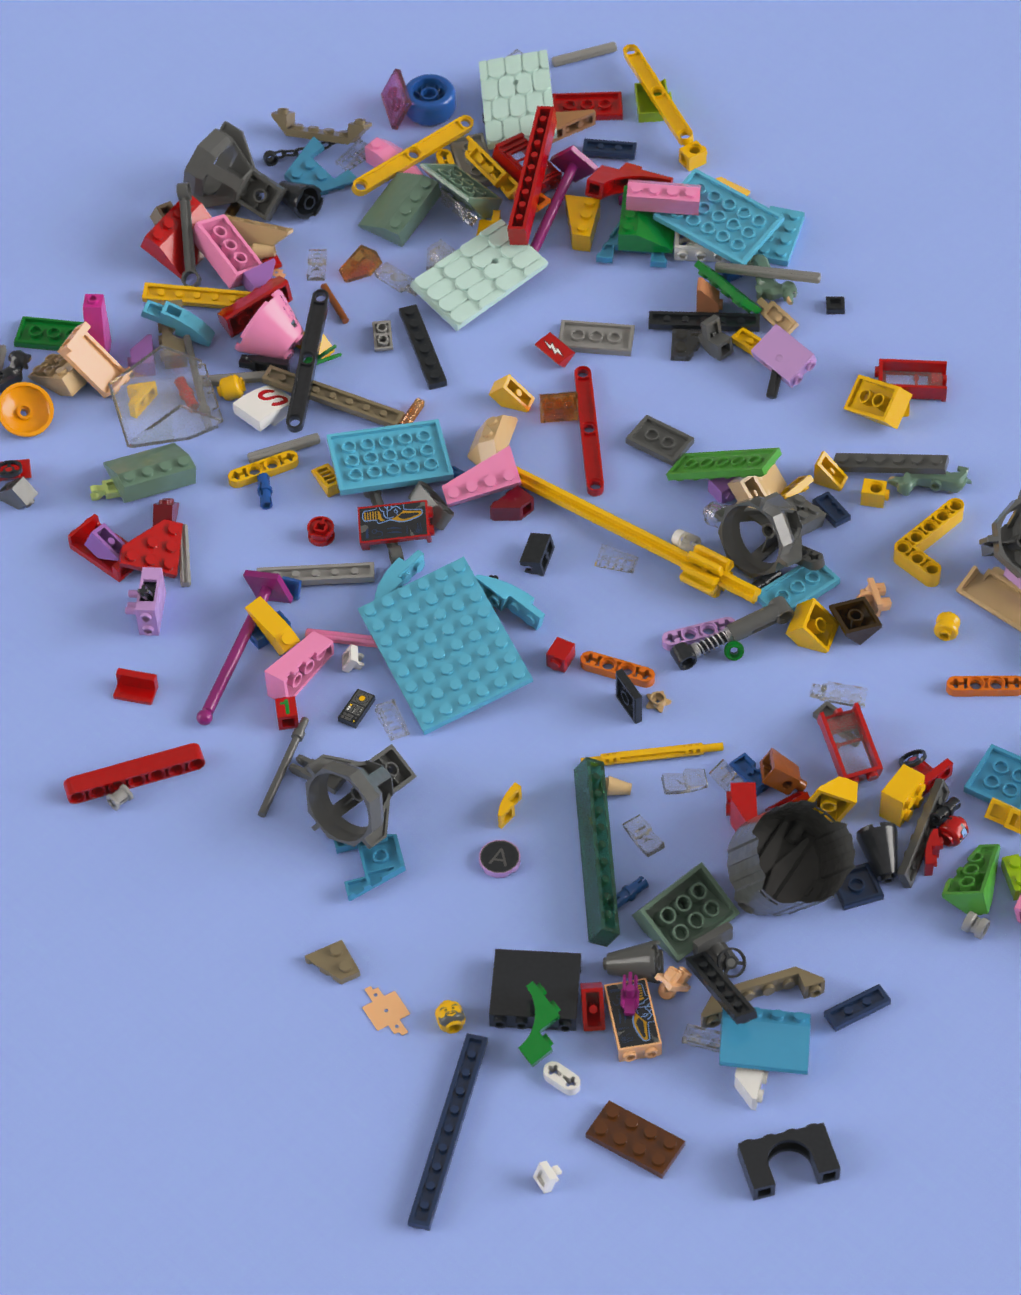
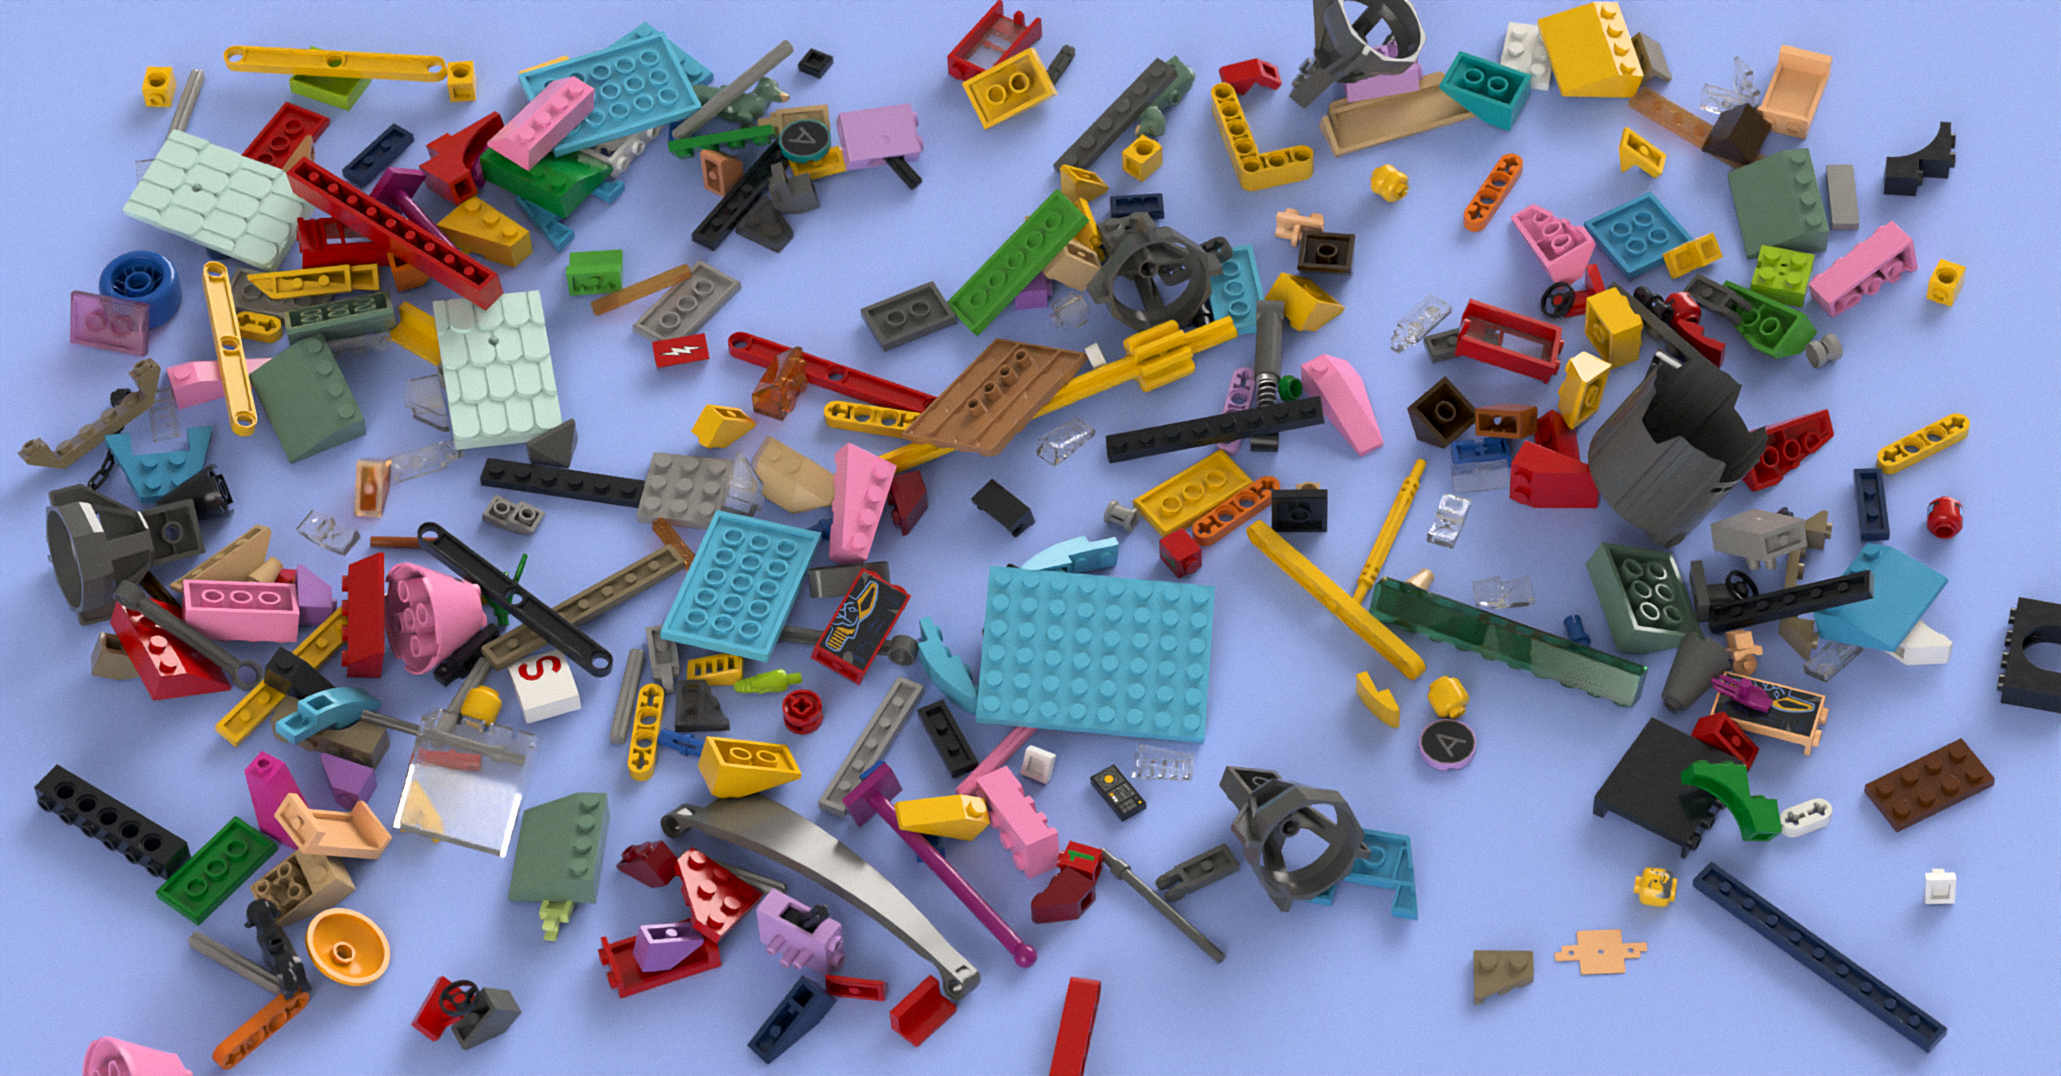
camera: 60 degrees left, 0 degrees up
(56, 275) = (112, 823): none -> black brick
(96, 628) = (792, 1019): none -> dark blue slope
(137, 648) = (856, 988): none -> red slope
(195, 295) = (294, 675): none -> black slope
(210, 563) = (809, 850): none -> panel
(256, 715) = (1064, 898): none -> dark red slope
(259, 521) = (745, 766): none -> yellow slope
(293, 482) = (697, 708): none -> clear smoke wing
(314, 453) = (663, 658): none -> light grey hinge
(335, 507) = (768, 682): none -> lime piece
(344, 607) = (947, 738): none -> black plate
(446, 329) = (554, 446): none -> dark grey slope
(454, 402) = (683, 490): none -> light grey plate
(465, 424) = (742, 489): none -> clear slope
(533, 840) = (1448, 697): none -> yellow head
(565, 464) = (874, 424): none -> yellow beam
(571, 615) = (1121, 516): none -> light grey bush
(576, 750) = (1336, 600): none -> yellow beam
(589, 34) = (159, 86): none -> yellow brick
(589, 284) = (595, 272): none -> bright green bracket
(590, 309) = (641, 289): none -> clear orange axle
(613, 505) = (995, 397): none -> medium nougat piece
(617, 641) = (1192, 493): none -> yellow tile
(667, 626) = (1215, 429): none -> black plate
(750, 677) = (1343, 400): none -> bright pink wedge
(757, 324) = (805, 141): none -> tile
(762, 734) = (1441, 414): none -> dark brown slope
(773, 947) = (1759, 536): none -> light grey piece
(866, 932) = (1787, 446): none -> red wedge
(874, 1055) = (1945, 517): none -> red head
(924, 419) = (1060, 63): none -> dark grey axle
(937, 1014) = (1925, 446): none -> yellow beam
(954, 733) = (1555, 243): none -> bright pink wedge
(975, 843) = (1716, 298): none -> dark grey hinge
(983, 510) = (1247, 73): none -> red slope

